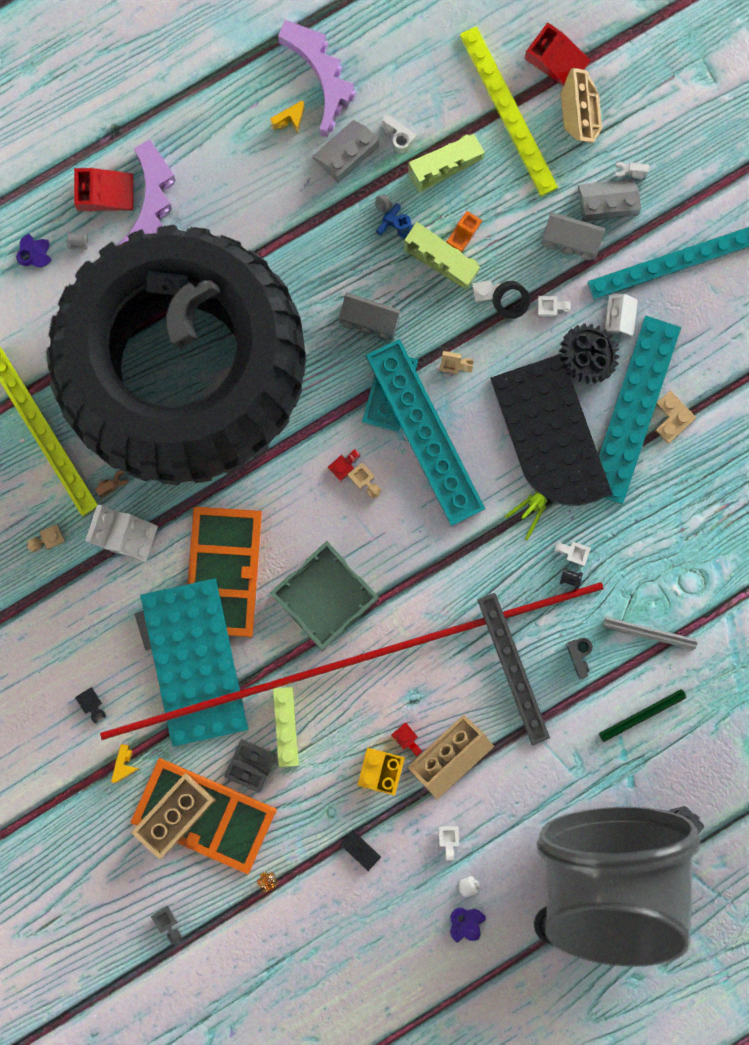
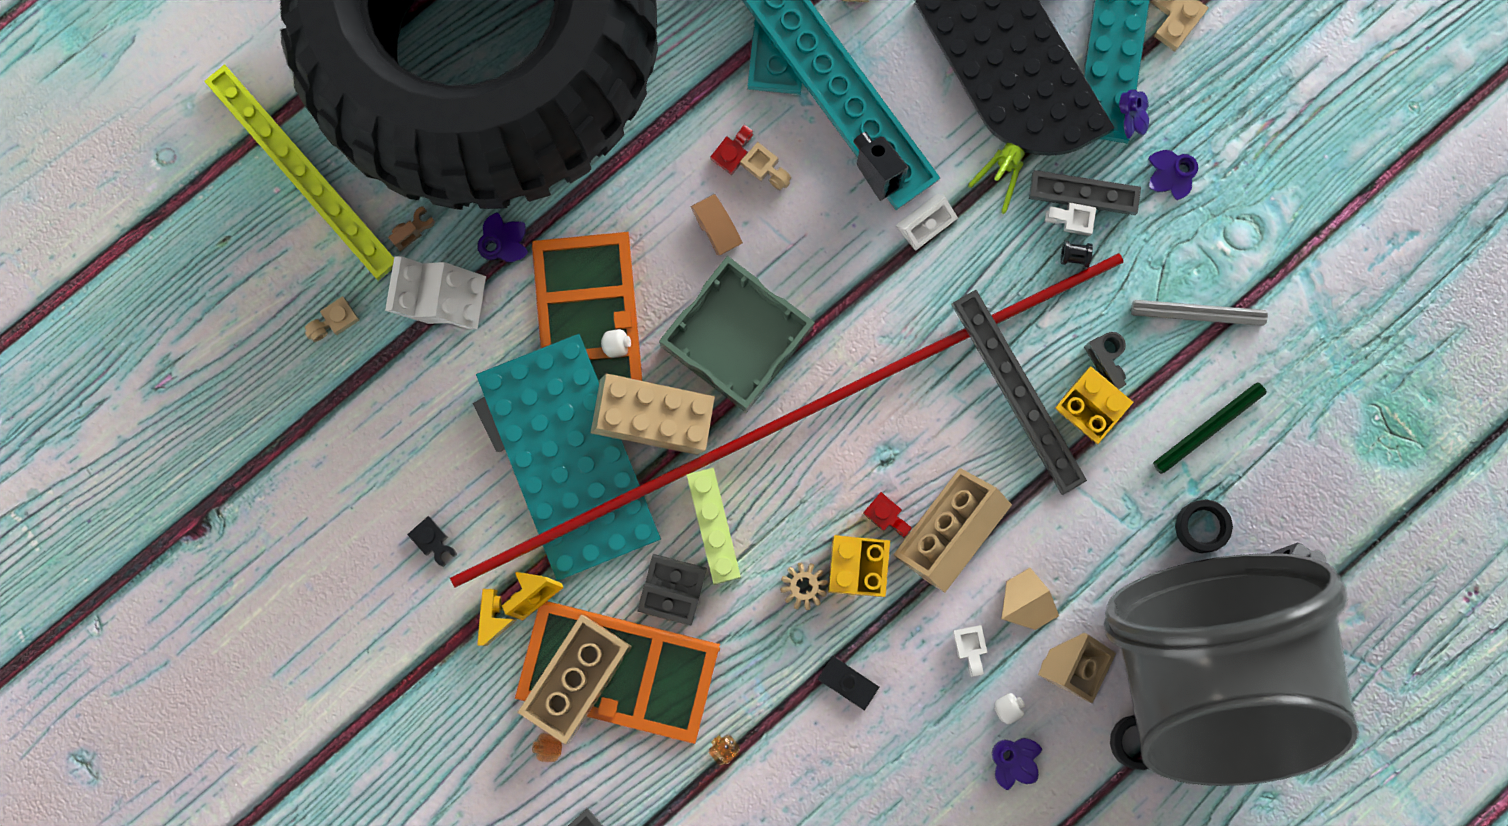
camera: 10 degrees left, 0 degrees up
(146, 860) = (547, 748): none -> clear orange piece
(155, 753) = (534, 593): none -> yellow slope
(176, 502) = (505, 236): none -> dark purple plate
(239, 588) = (615, 343): none -> white piece
(256, 643) = (652, 414): none -> tan brick
(324, 516) = (717, 224): none -> medium nougat slope
(347, 777) = (812, 583): none -> tan gear
(446, 500) = (880, 165): none -> black torso
(471, 537) = (927, 221): none -> white slope
(493, 815) = (1028, 601): none -> tan slope
(520, 865) = (1078, 666): none -> tan slope
(562, 687) = (1093, 405): none -> yellow slope
(585, 535) = (1085, 191): none -> dark grey plate
(610, 783) = (1224, 520): none -> black tyre
(630, 485) = (1134, 107): none -> dark purple plate
(646, 532) = (1168, 173): none -> dark purple plate

